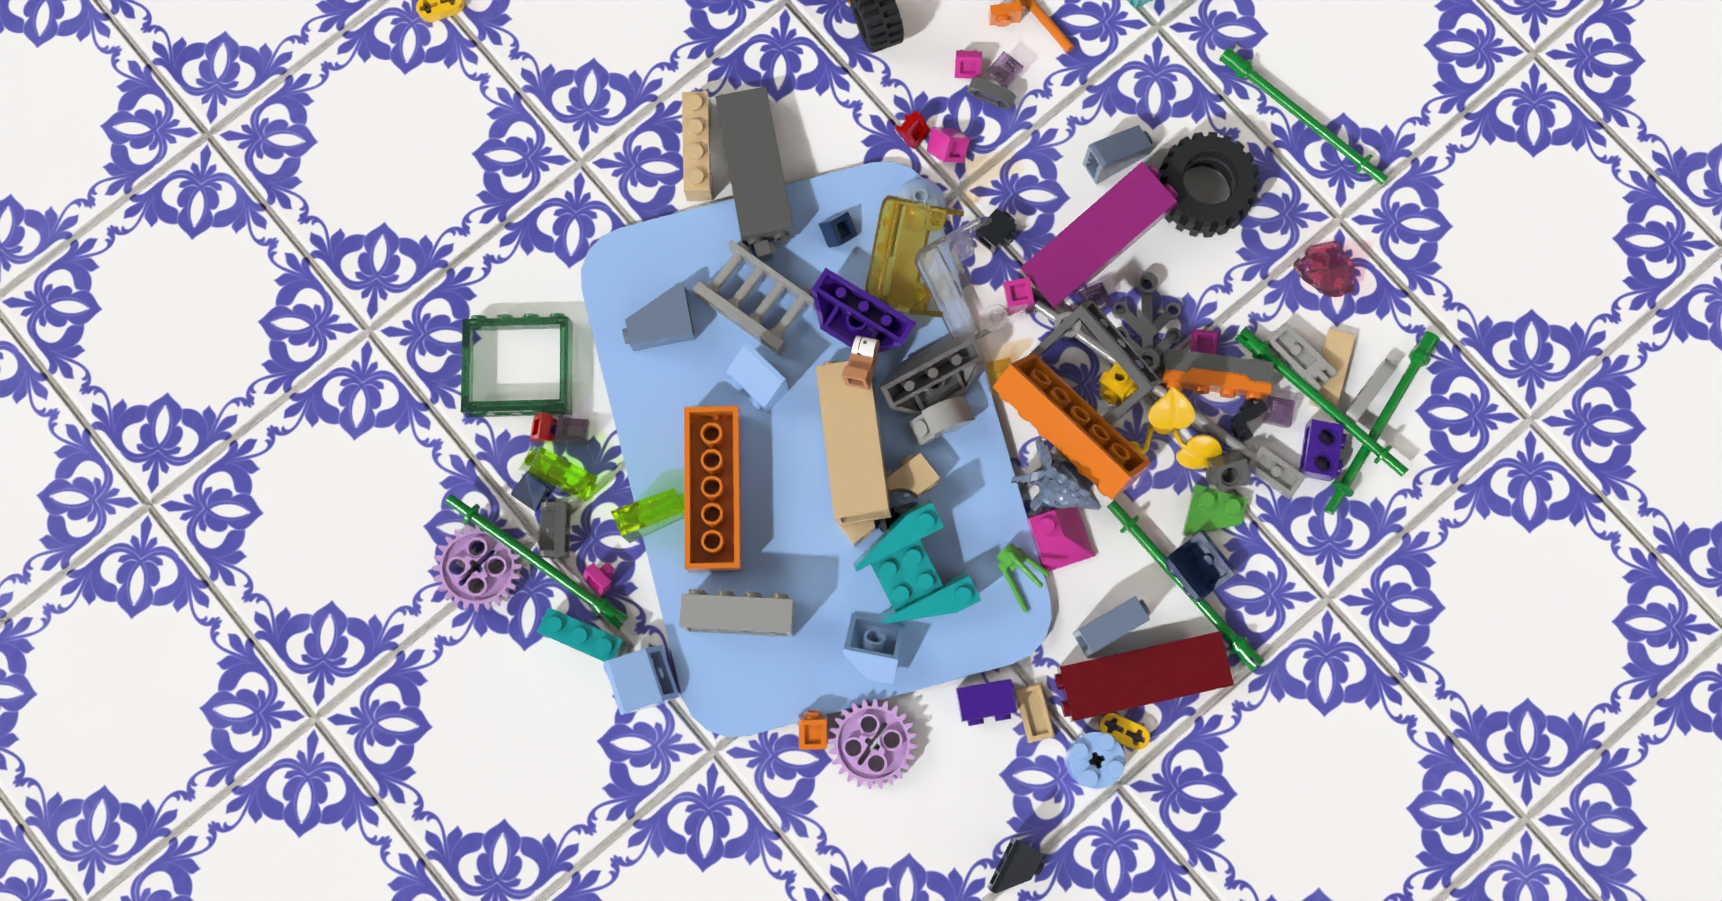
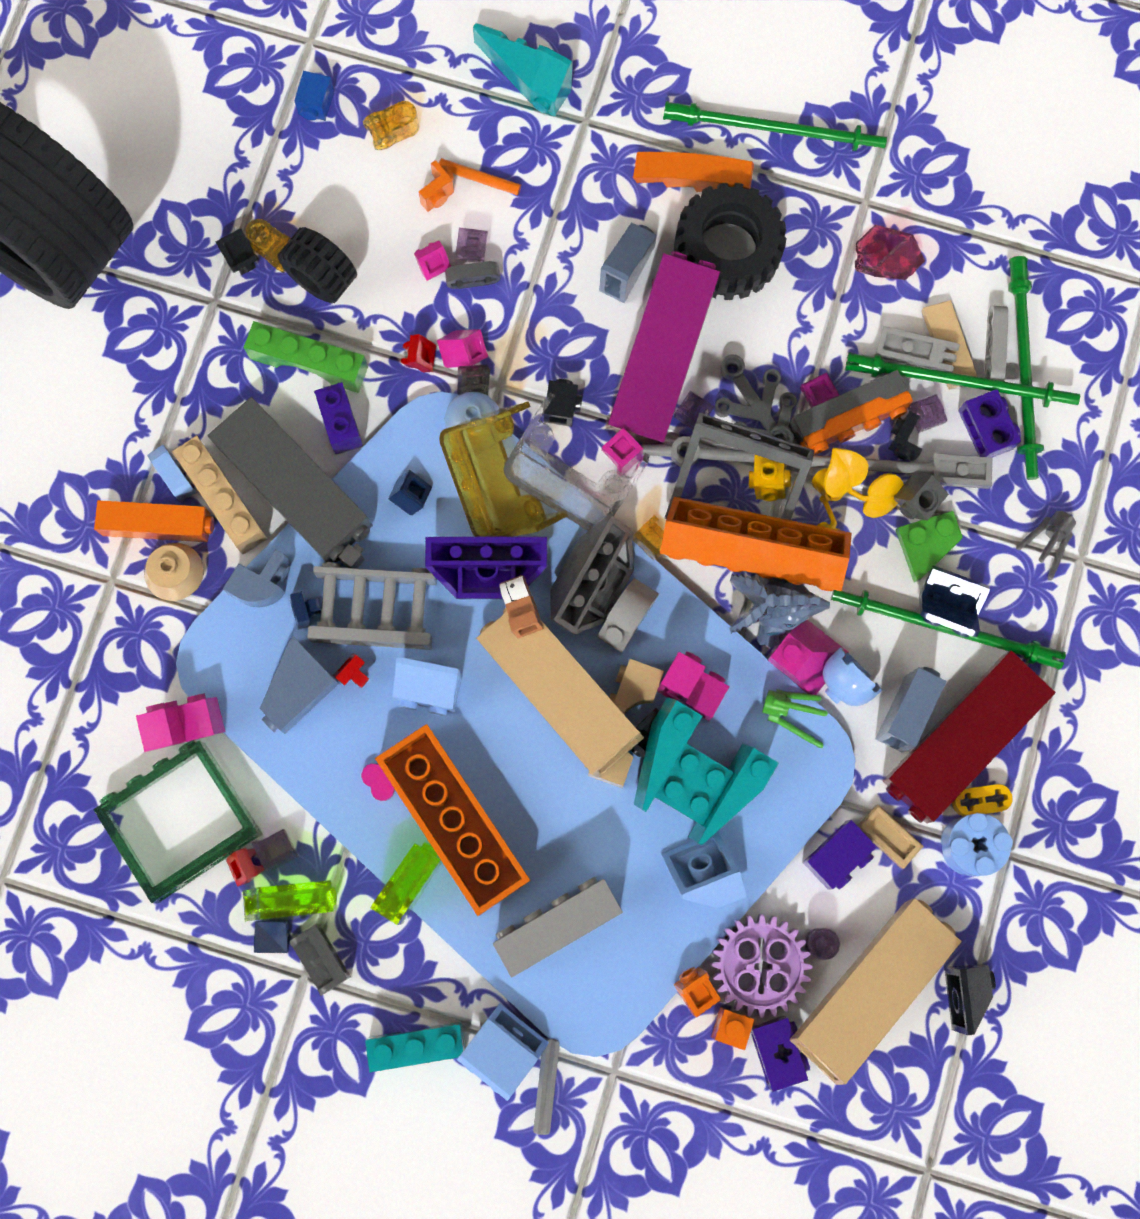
camera: 40 degrees left, 0 degrees up
(494, 584) = (238, 1040): lavender gear -> none
(558, 294) = (173, 724): none -> dark pink brick
(598, 578) = (395, 978): dark pink tile -> none
(599, 605) = (413, 1004): green bar -> none
(628, 182) = (173, 571): none -> tan cone
(637, 136) = (153, 521): none -> orange brick
(657, 728) = (546, 1088): none -> light grey axle
(672, 109) = (171, 473): none -> light blue piece
(676, 432) = (376, 779): none -> dark pink tile
(682, 233) = (259, 589): none -> sand blue brick
(704, 267) = (303, 610): none -> dark blue tile
(709, 334) = (350, 670): none -> red tile
(820, 141) = (338, 418): none -> dark purple brick
(820, 774) = (732, 1028): none -> orange brick
(832, 829) = (779, 1072): none -> dark purple brick
(837, 91) = (329, 362): none -> bright green arch
(929, 757) = (827, 943): none -> clear purple wheel
(940, 173) = (473, 379): none -> clear smoke tile
(946, 816) = (876, 991): none -> tan brick
(953, 503) = (692, 686): none -> dark pink brick
(1079, 574) = (848, 680): none -> light blue cylinder
(1215, 112) = (691, 170): none -> orange slope
(1323, 563) = (1058, 529): none -> flat silver plant

